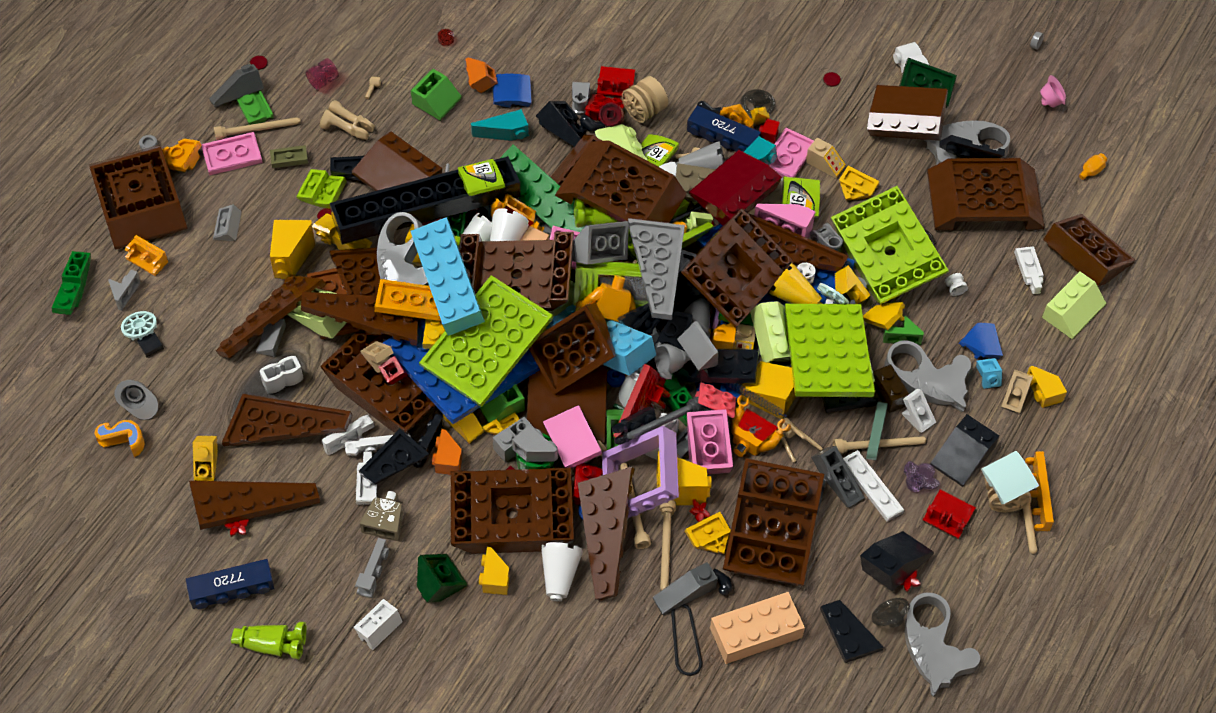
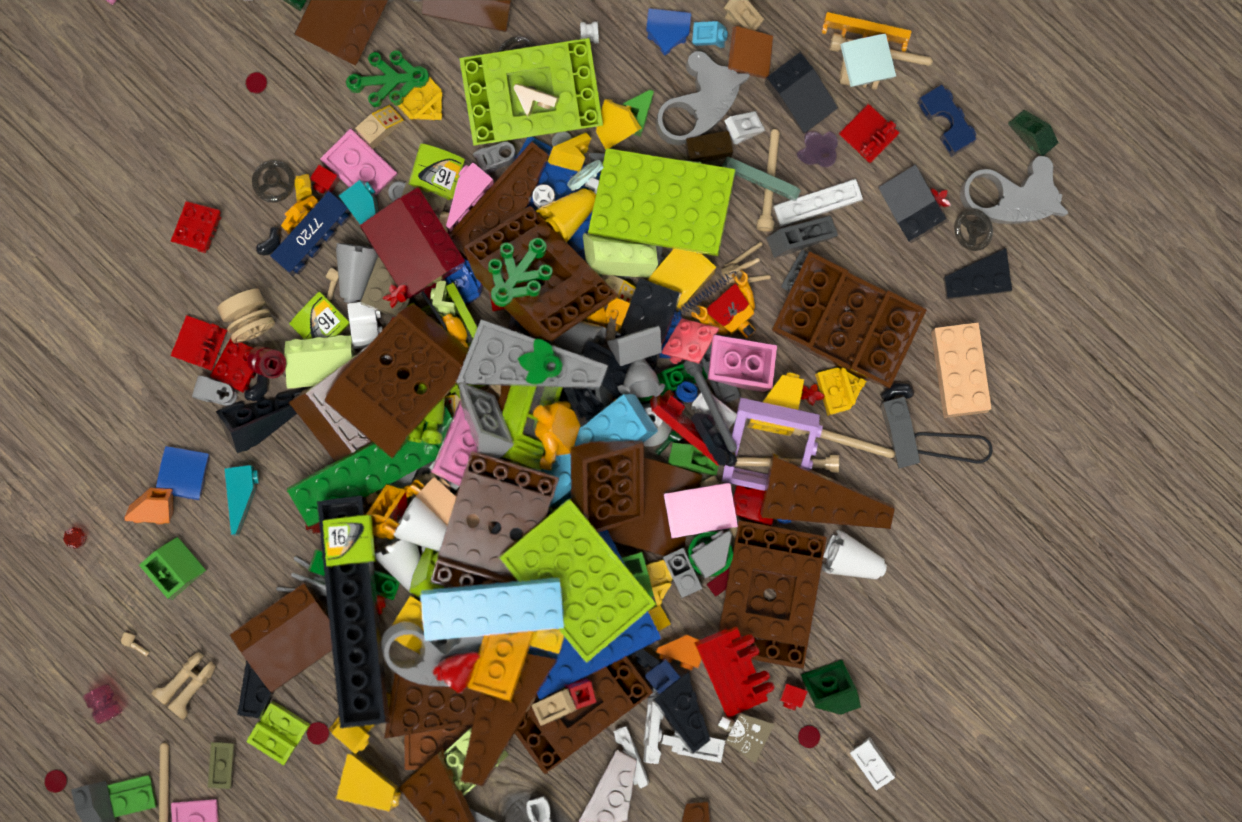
camera: 80 degrees left, 25 degrees up
(366, 582) = (821, 767): light grey plate -> none
(390, 265) = (457, 670): none -> red hat
(392, 572) = (809, 737): none -> dark red piece
(422, 435) = (662, 676): none -> dark blue panel
(425, 544) = (792, 697): none -> red plate
(436, 486) = (730, 670): none -> red hinge
(495, 575) = (841, 627): yellow slope -> none
(659, 267) = (537, 363): none -> green plate
(671, 404) = (687, 392): none -> blue plate
(689, 182) = (396, 295): none -> red plant
(700, 59) = (196, 226): none -> red hinge
(712, 233) = (518, 273): none -> green plant
(872, 172) = (390, 79): none -> green plant
(882, 239) = (528, 96): none -> slope
(973, 584) = (940, 103): none -> dark blue arch
(986, 402) = (750, 52): none -> dark orange tile
(999, 649) = (1034, 132): none -> clear green slope

